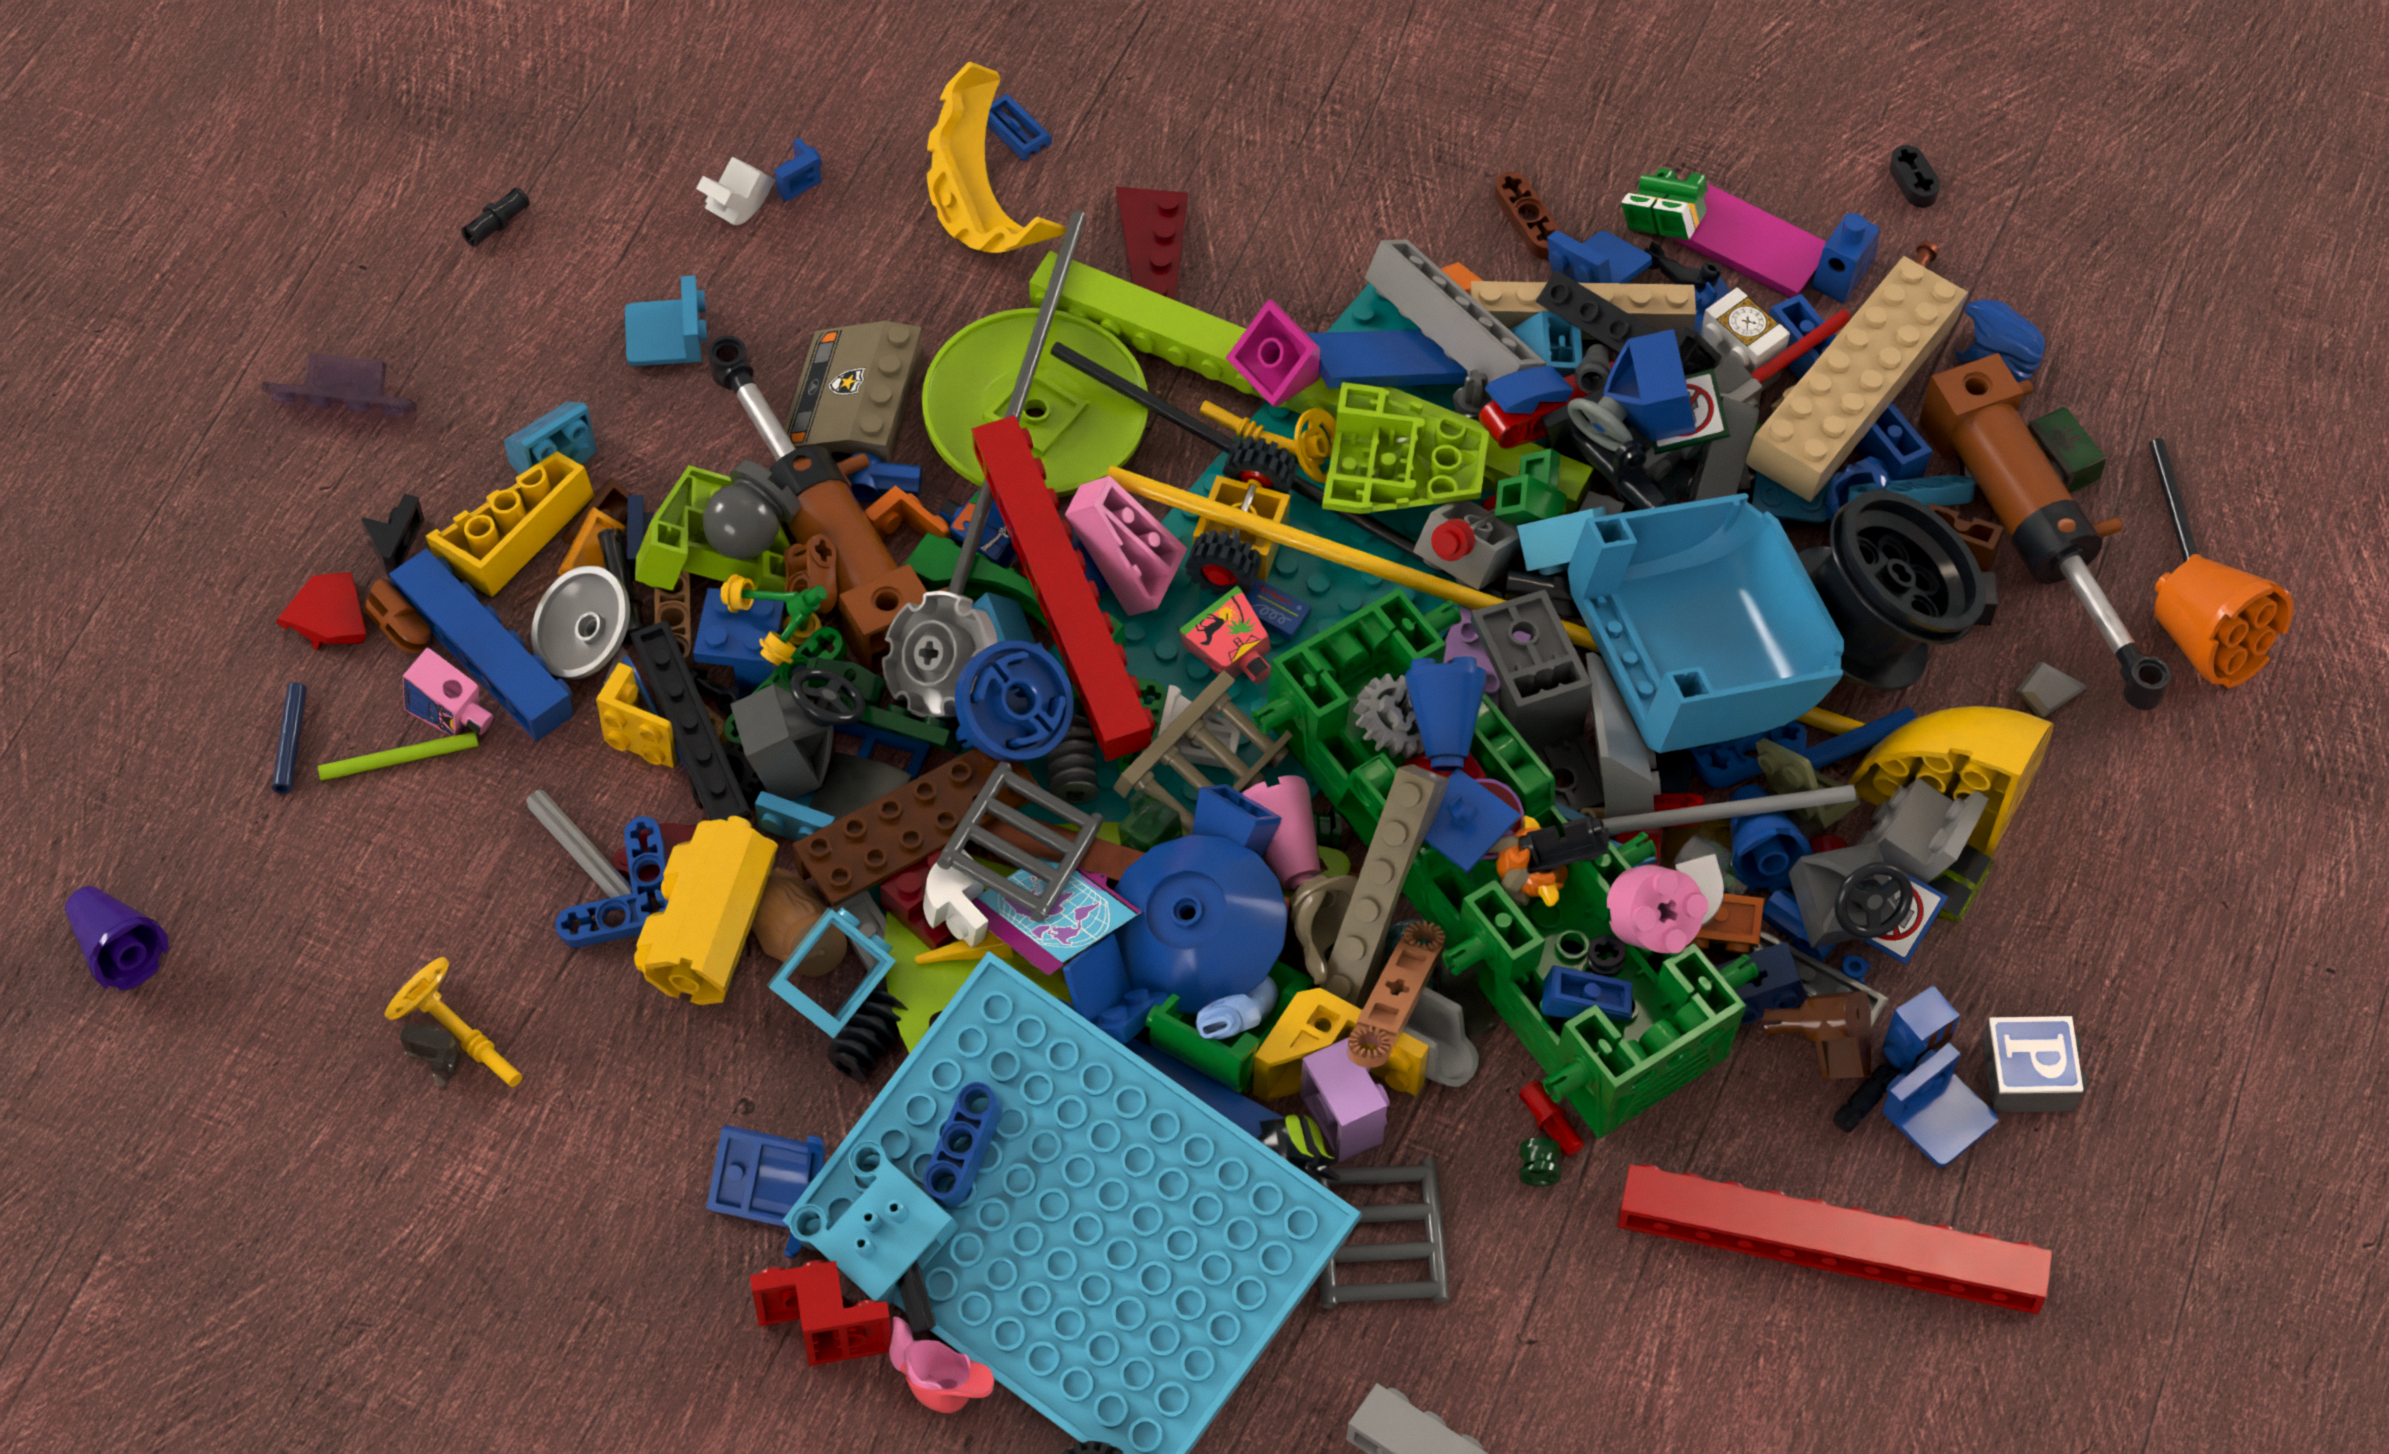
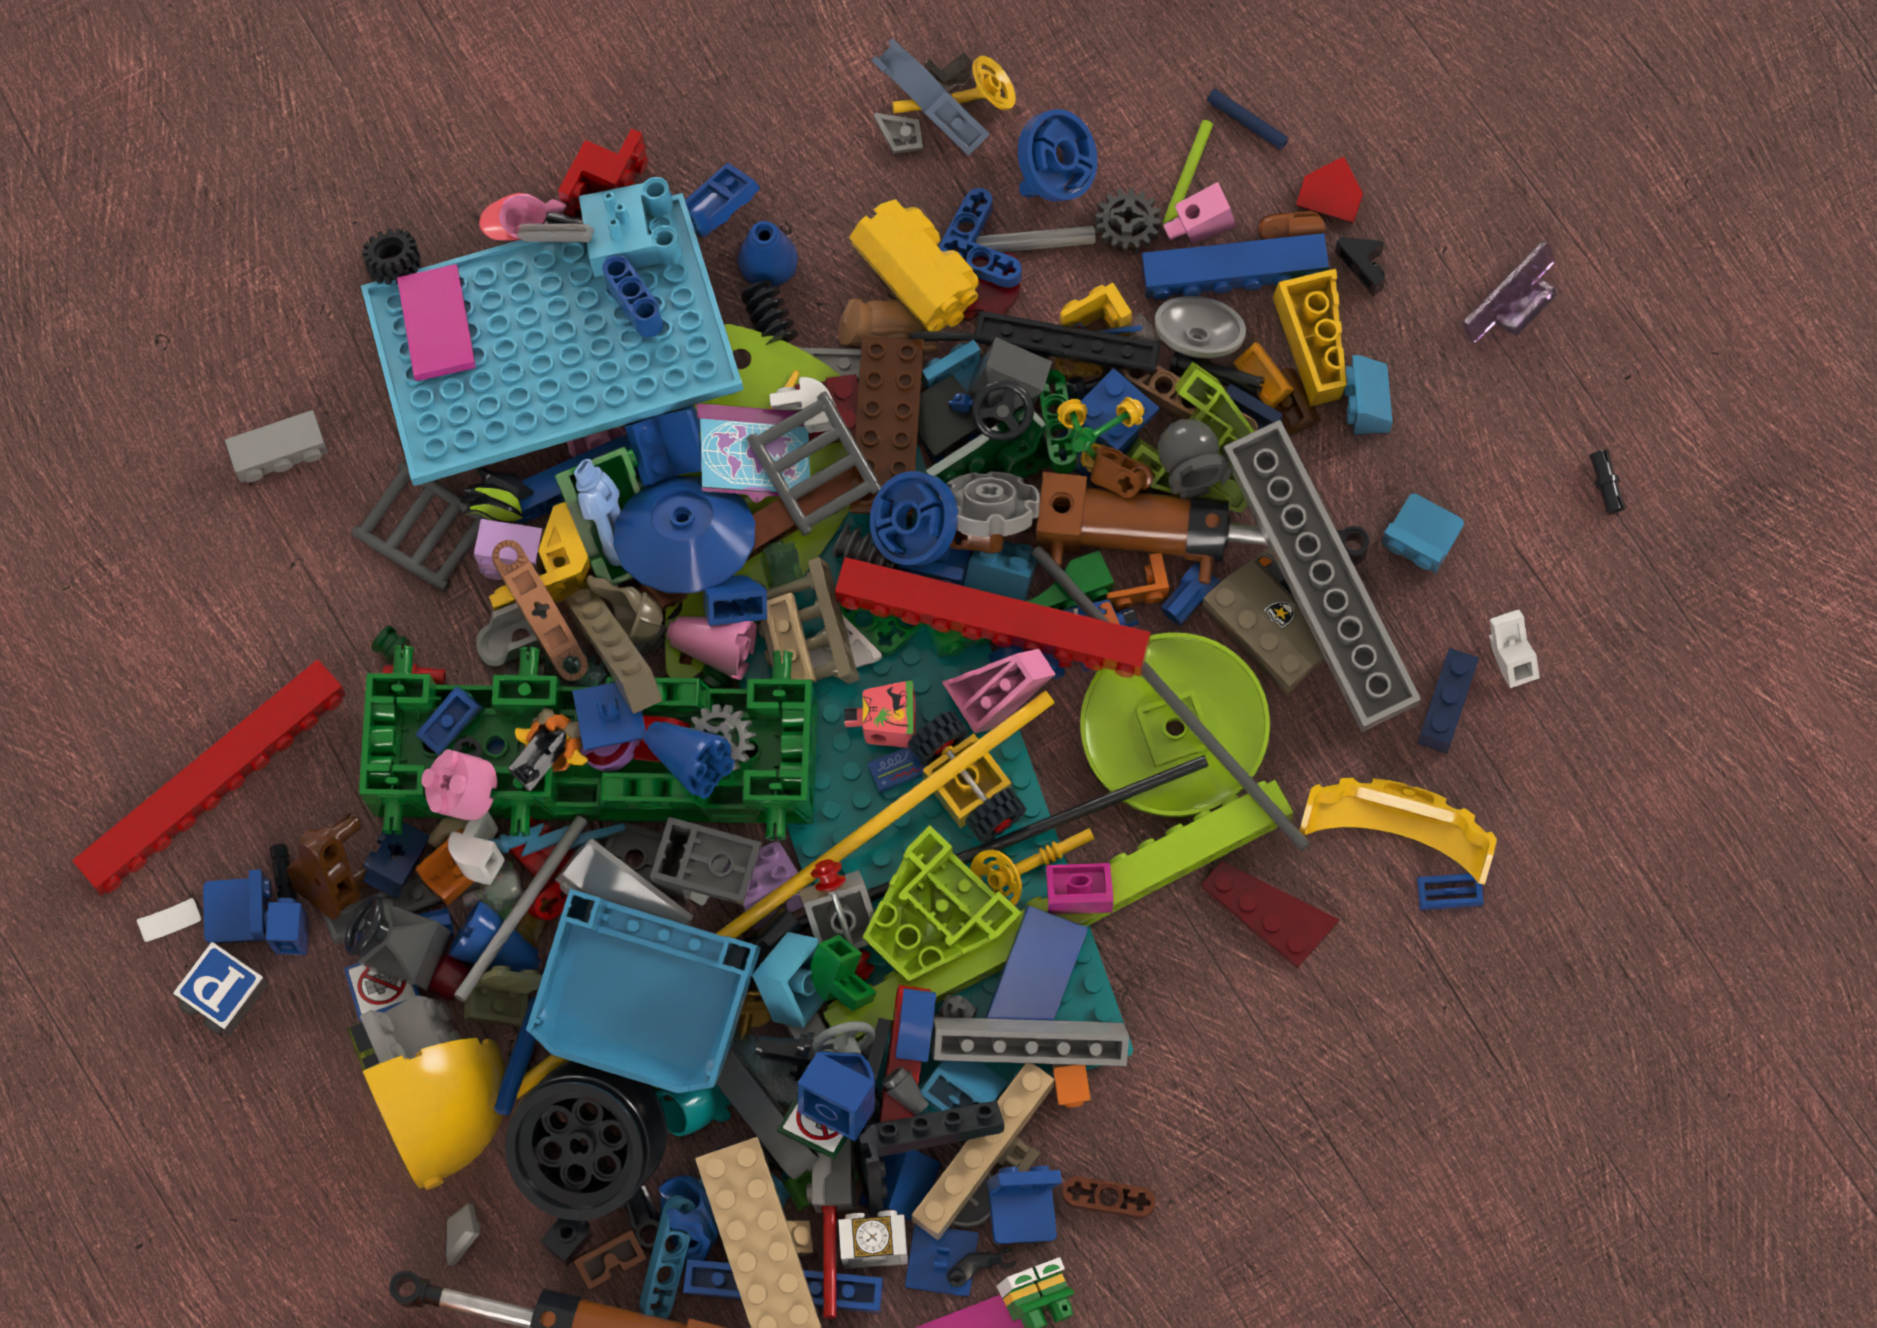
camera: 130 degrees right, 15 degrees up
(470, 864) = (1039, 162): none -> blue piece
(480, 780) = (1114, 219): none -> dark grey gear
(482, 1029) = (931, 97): none -> sand blue piece
(541, 1058) = (900, 132): none -> light grey piece
(787, 347) = (1321, 576): none -> light grey brick
(791, 829) = (942, 336): none -> black tyre
(795, 1087) = (767, 255): none -> blue cone
(799, 173) = (1503, 705): blue bracket -> none
(829, 214) = (1448, 700): none -> dark blue brick
(835, 776) = (961, 402): none -> blue piece
(874, 945) = (799, 299): medium azure window -> none
(940, 1294) = (555, 232): none -> light grey axle
(1144, 1353) = (436, 322): none -> dark pink tile
(1229, 758) = (788, 635): none -> tan tile
(2007, 1179) = (169, 920): none -> white sticker

